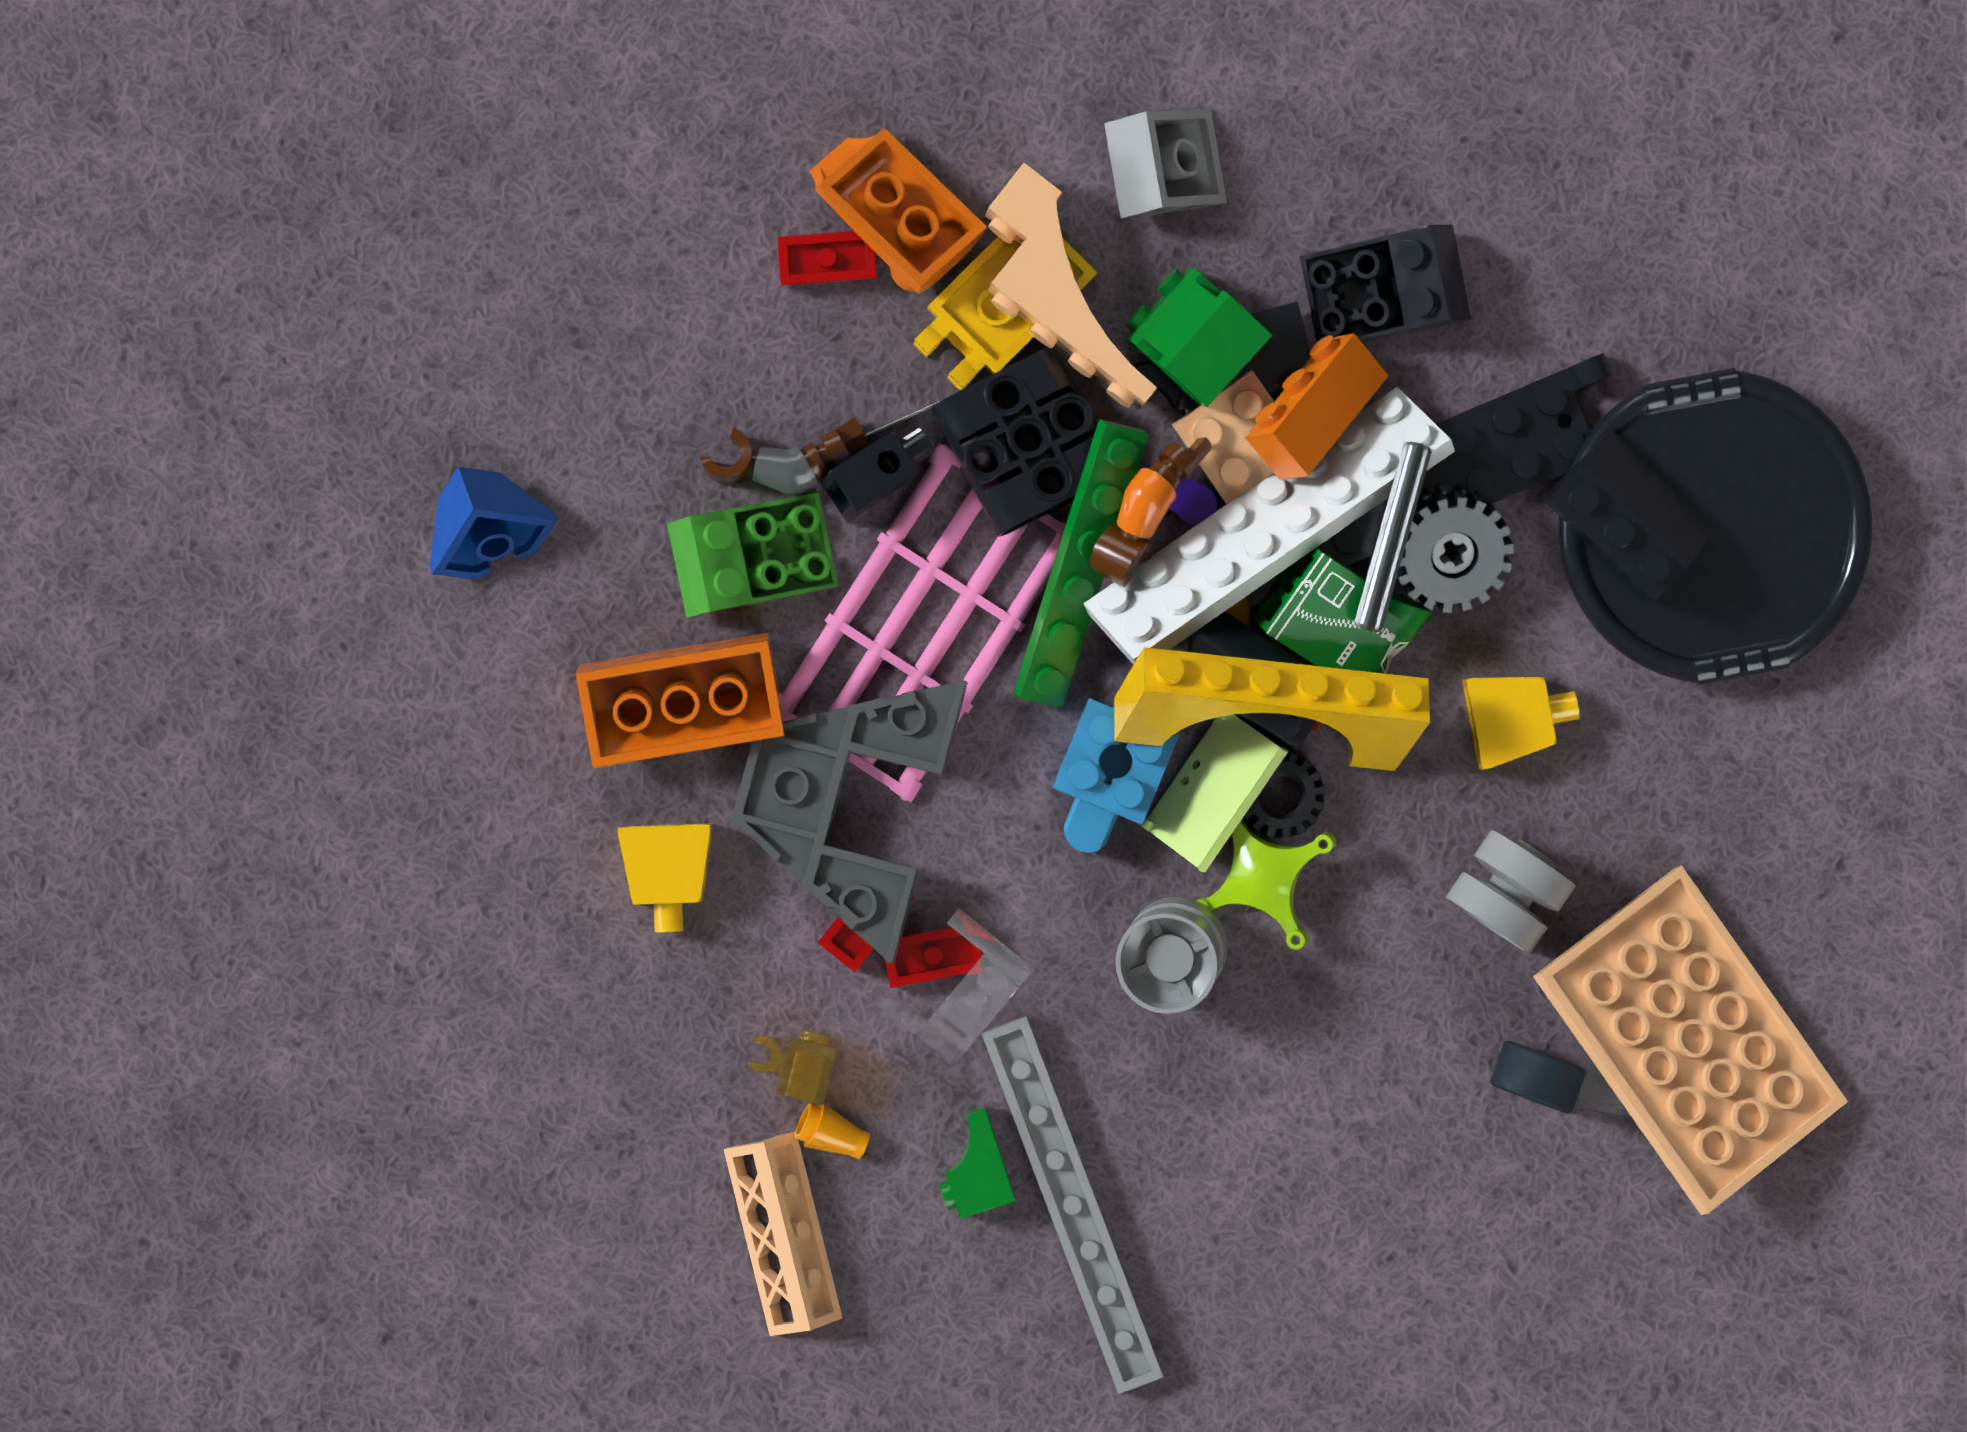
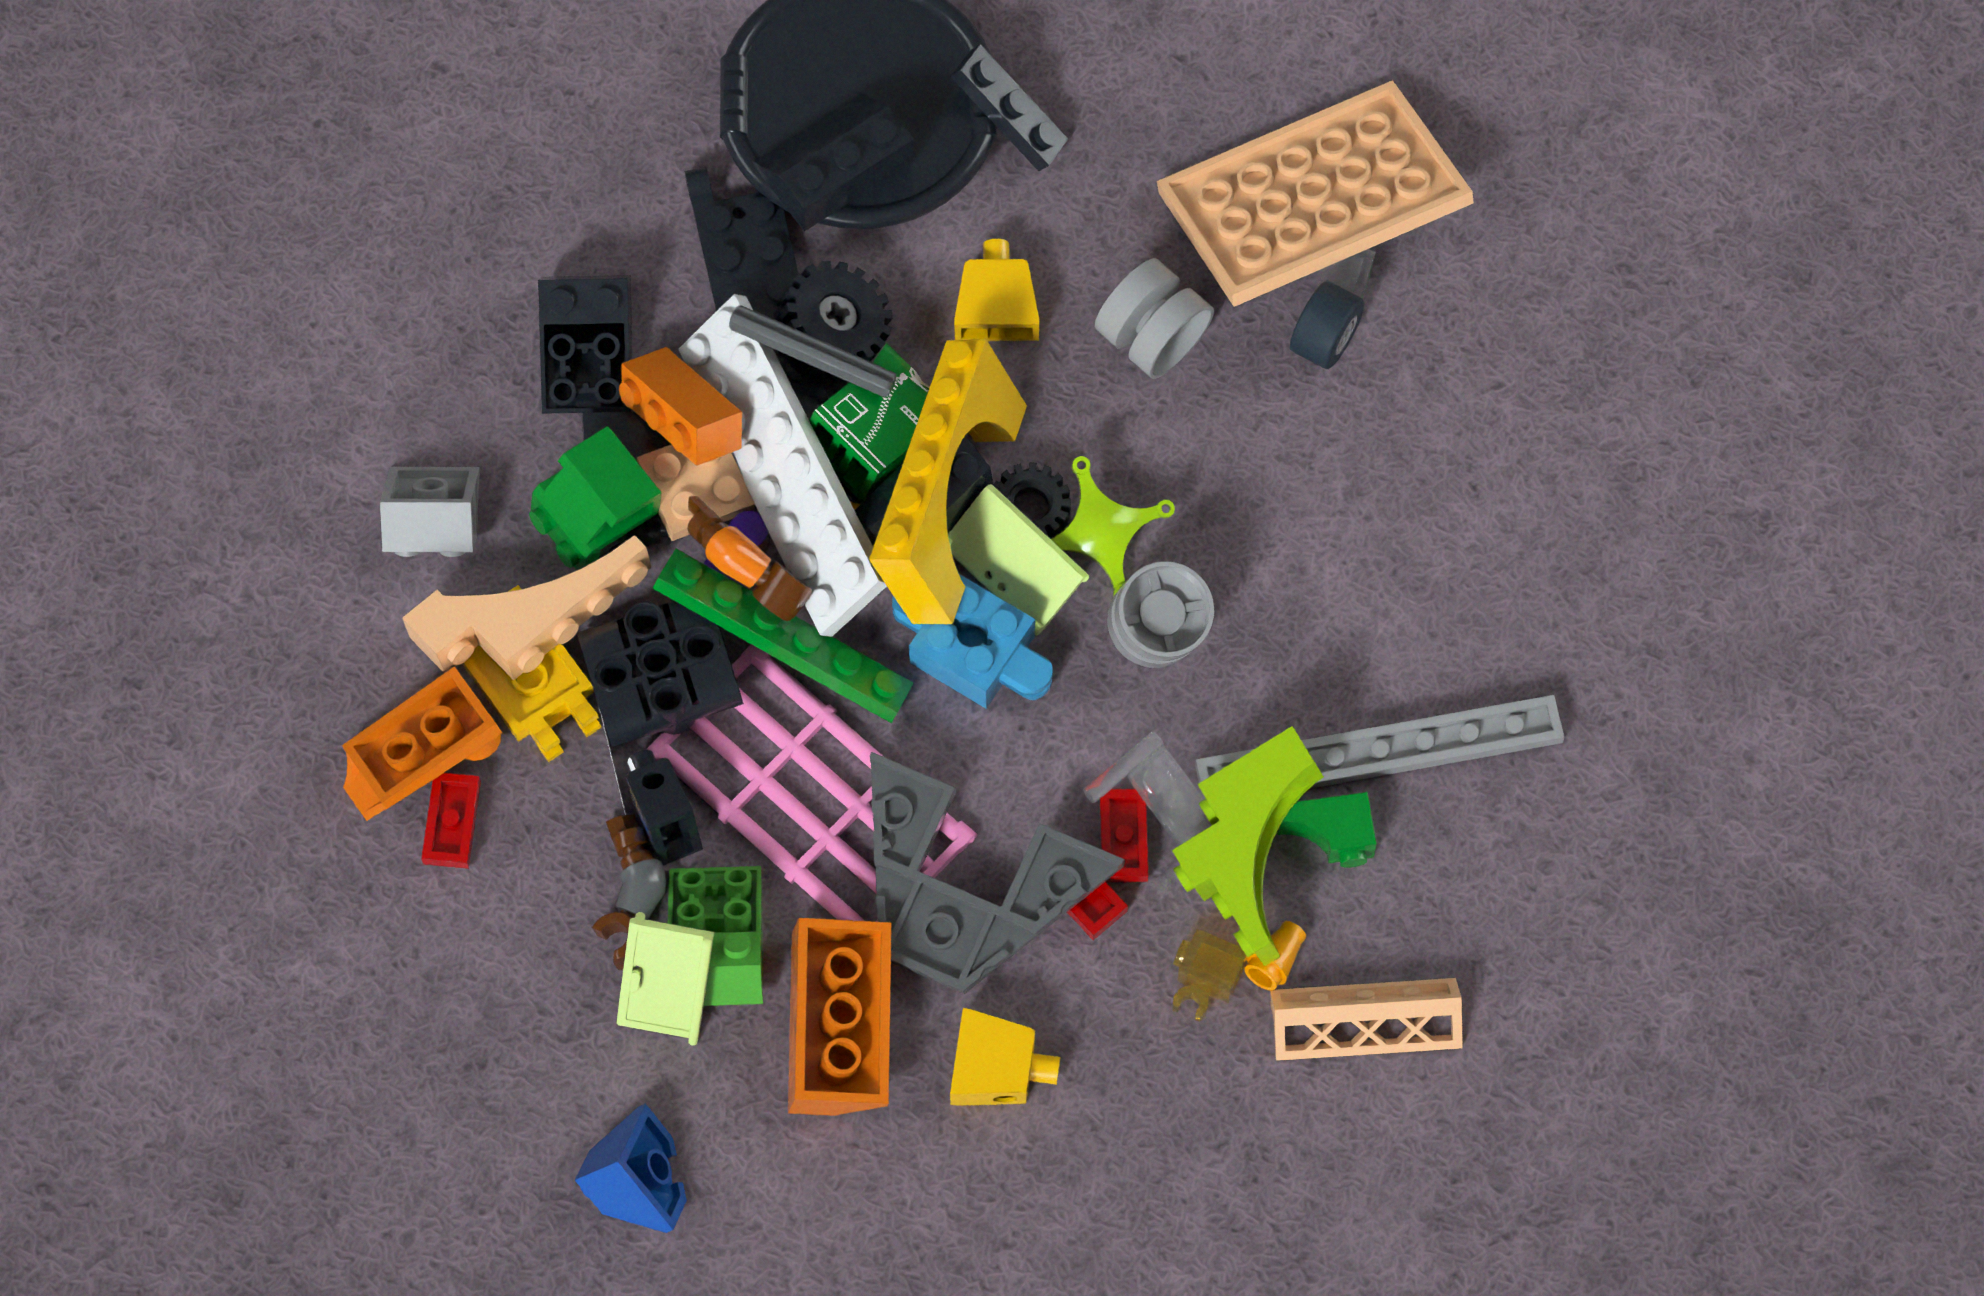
camera: 80 degrees left, 20 degrees down
(681, 516) = (671, 978): none -> yellowish green door
(913, 1073) = (1245, 812): none -> lime arch
(1732, 692) = (1009, 107): none -> plate

